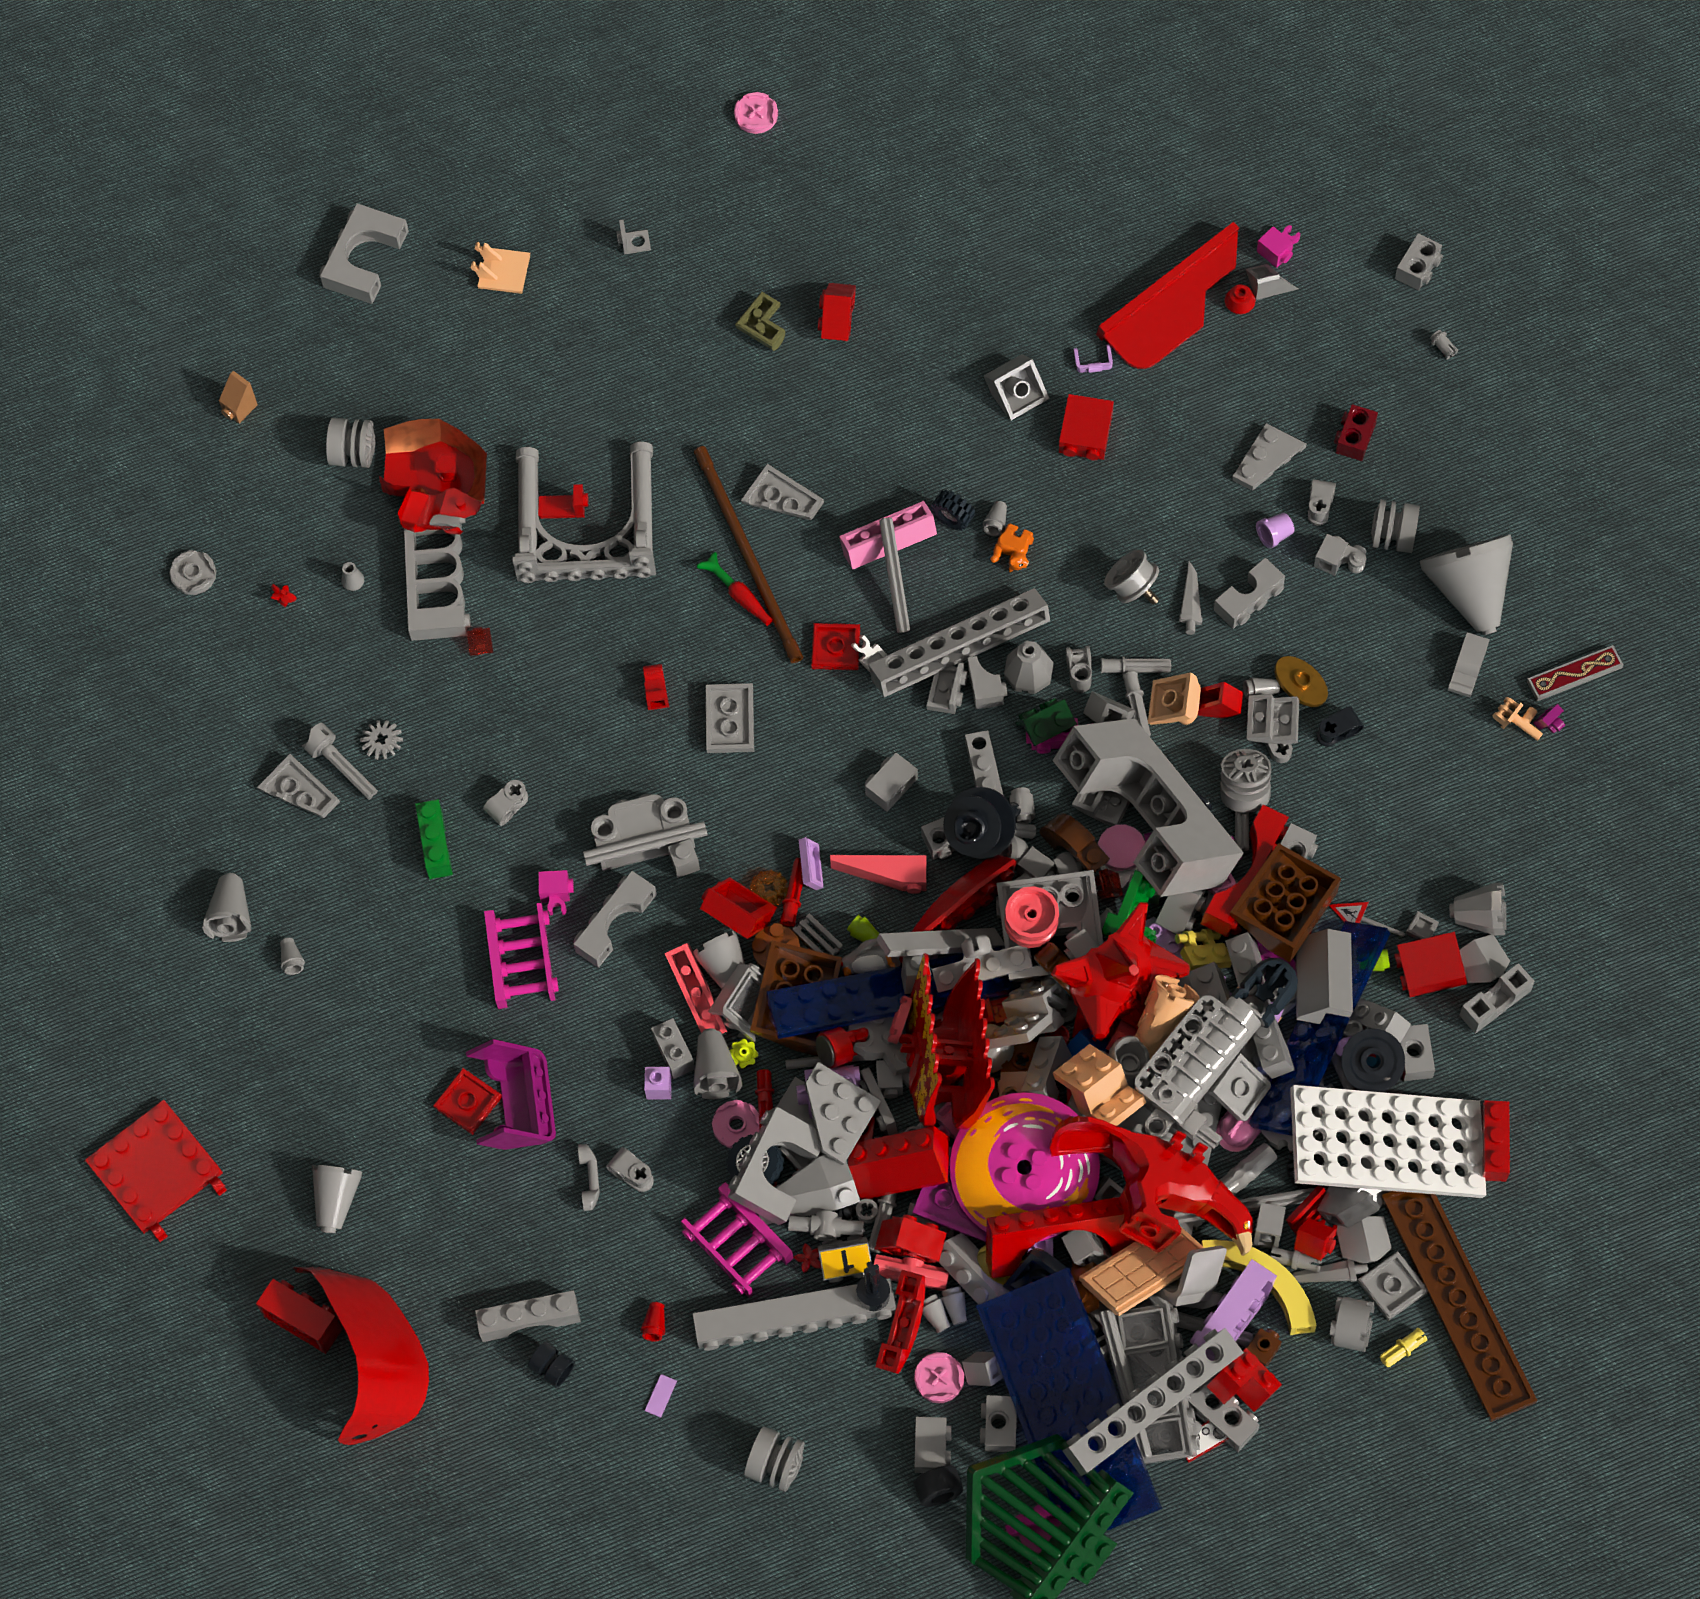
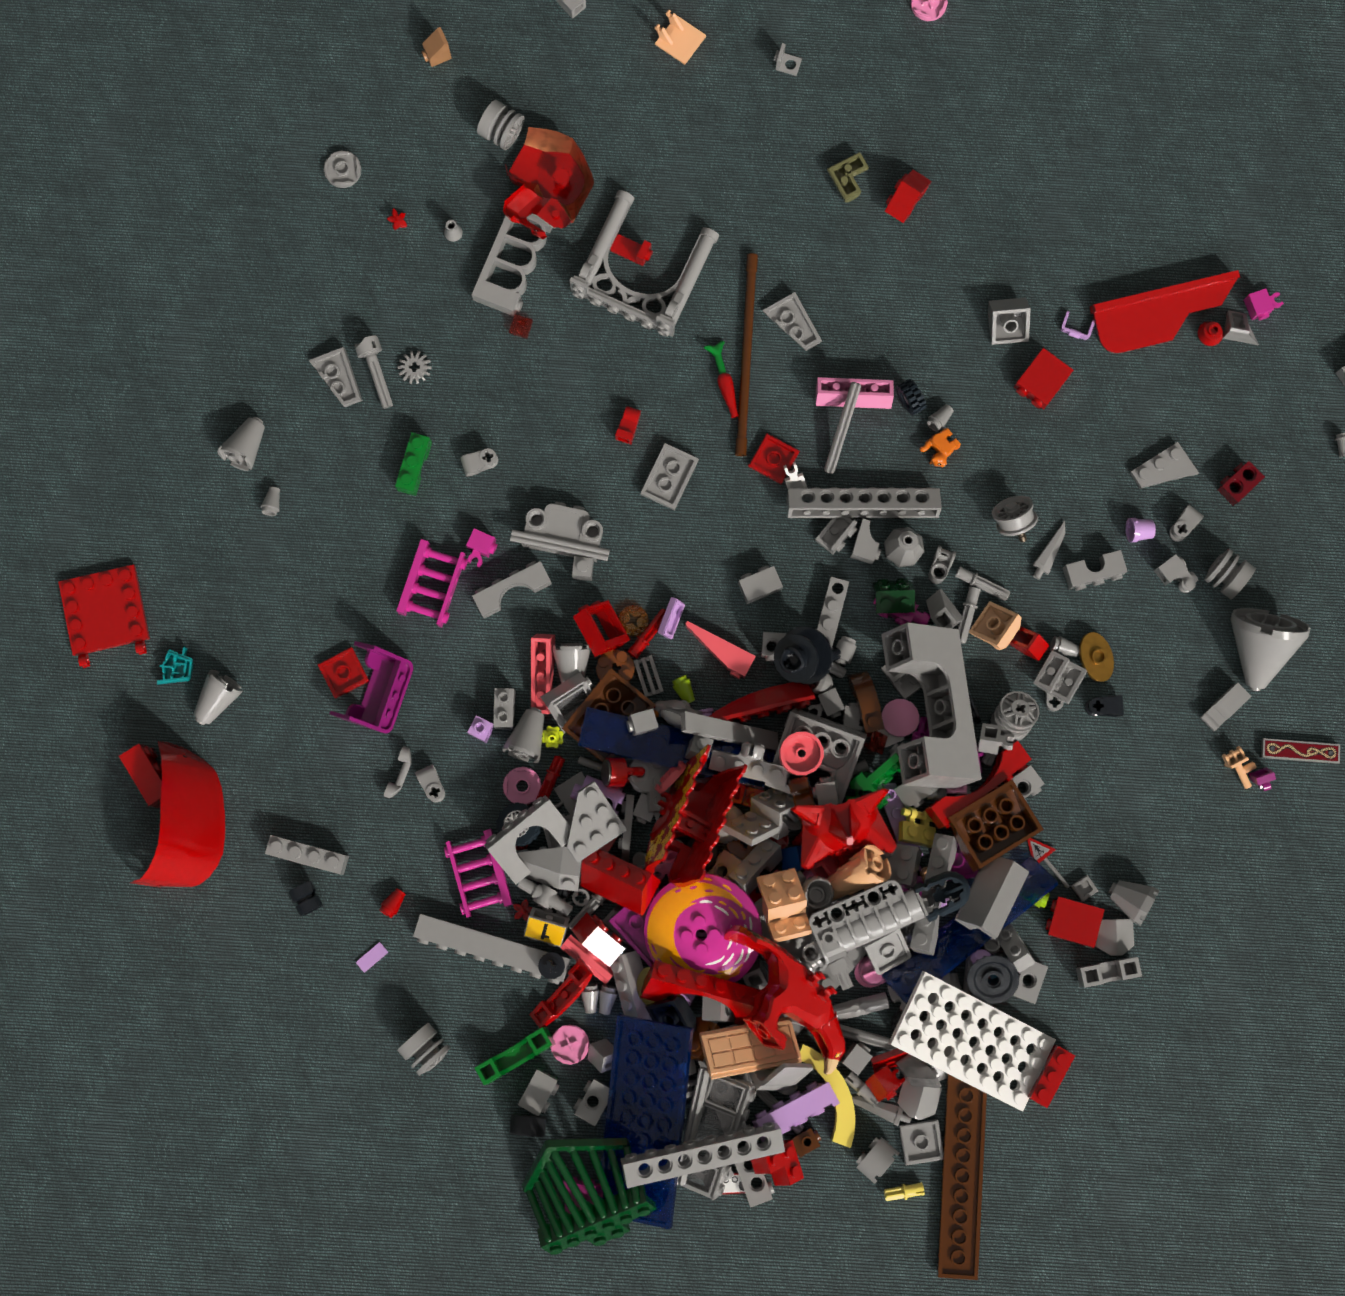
camera: 20 degrees right, 15 degrees up
(270, 1187) = (176, 667): none -> teal piece
(838, 975) = (642, 722): none -> light grey brick
(874, 1432) = (515, 1056): none -> green arch
(1233, 814) = (991, 739): none -> light grey brick

